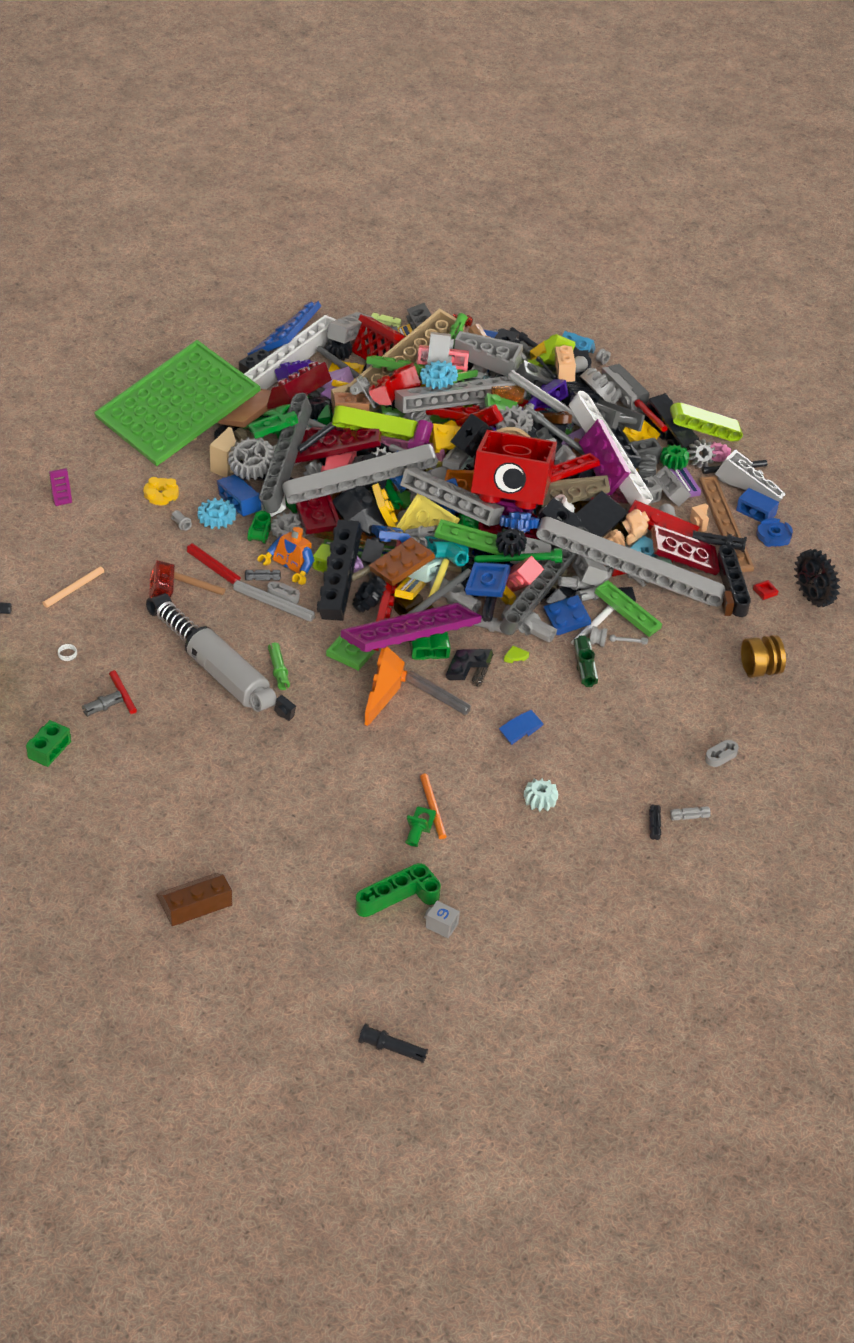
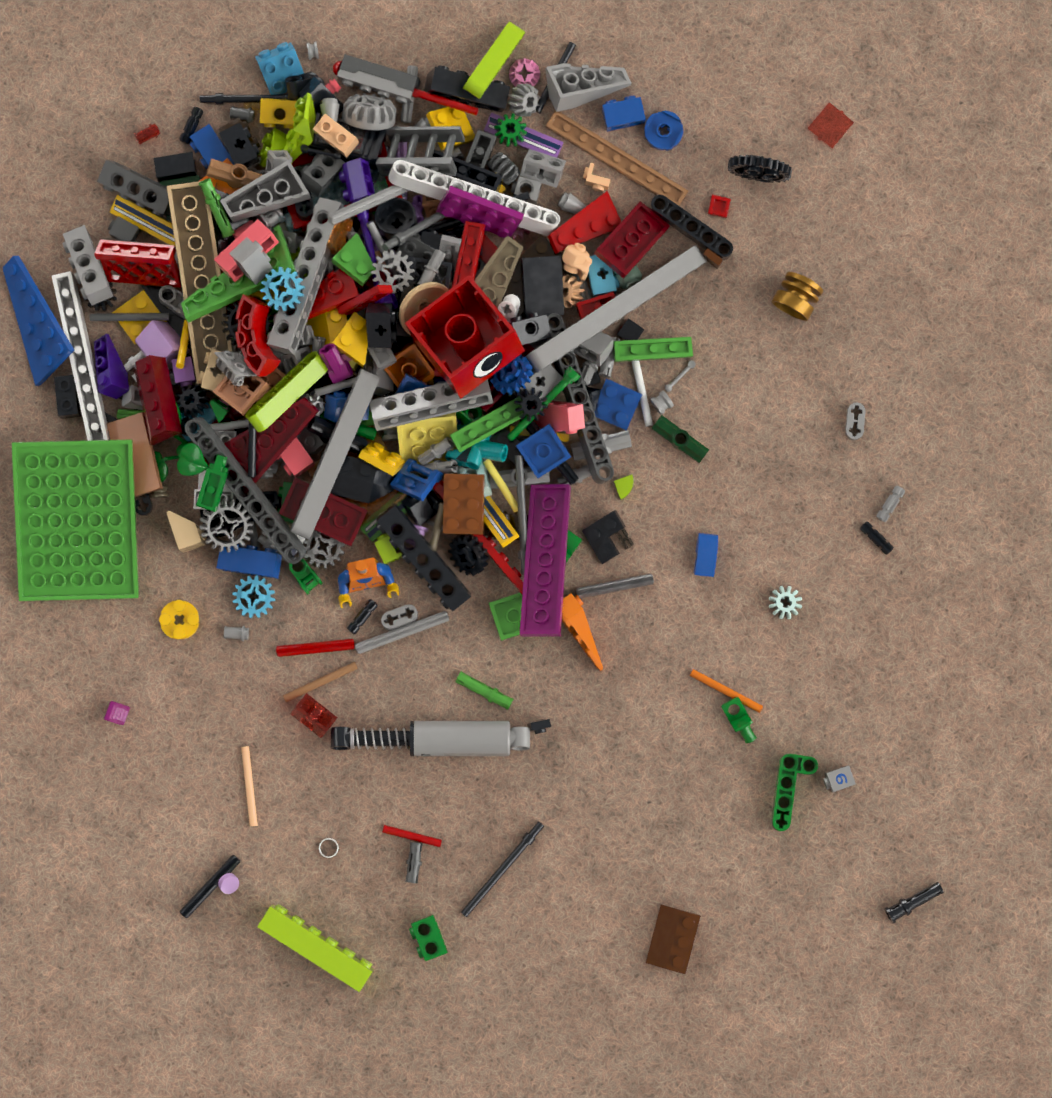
camera: 50 degrees left, 40 degrees up
(187, 757) = (528, 839): none -> black bar
(387, 320) = (86, 207): yellowish green axle -> none
(560, 418) = (397, 211): reddish brown piece -> none
(735, 542) = (648, 190): black pin -> none

